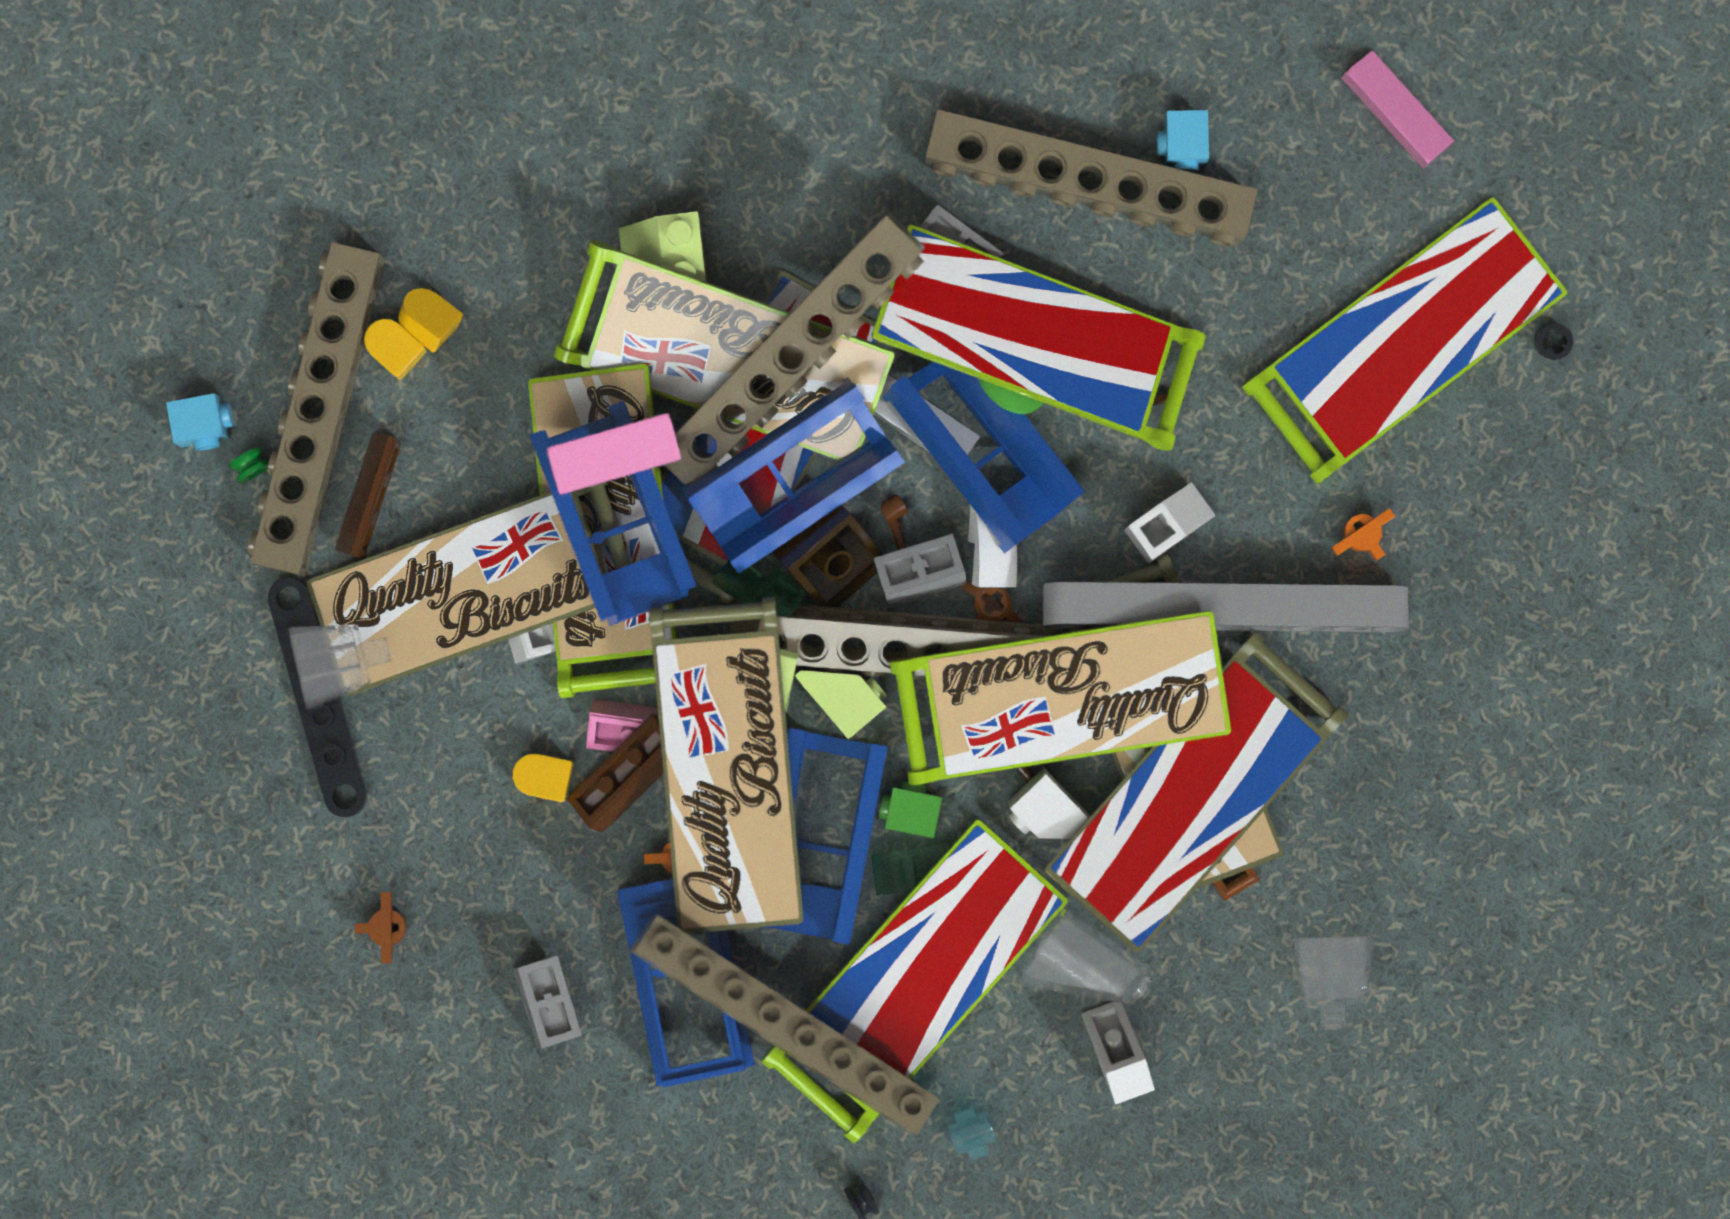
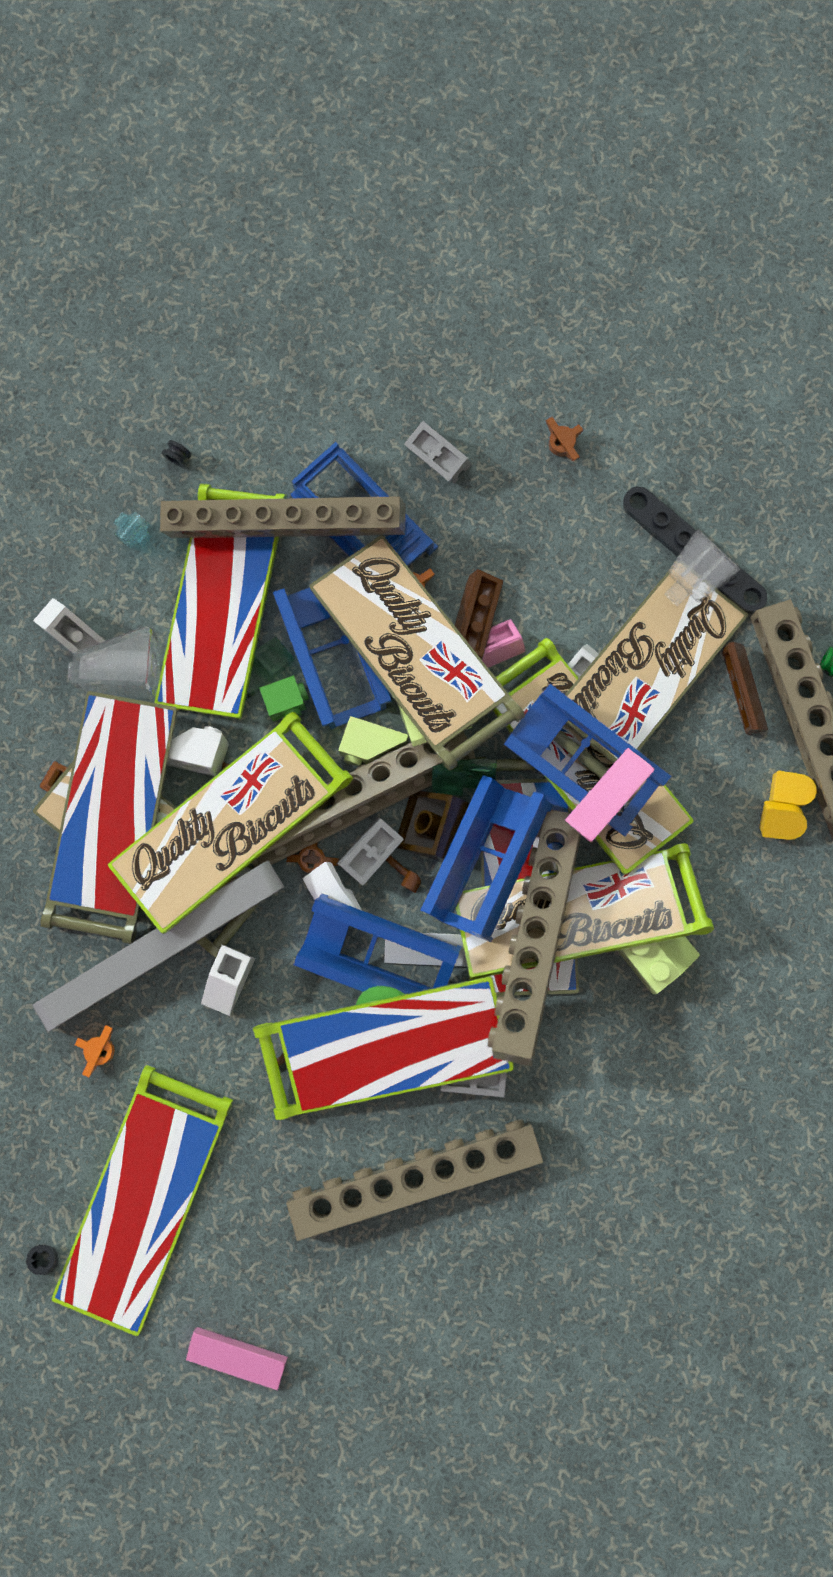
camera: 155 degrees right, 5 degrees down
(543, 776) = (525, 584): yellow piece -> none
(1184, 140) = (367, 1245): medium azure brick -> none

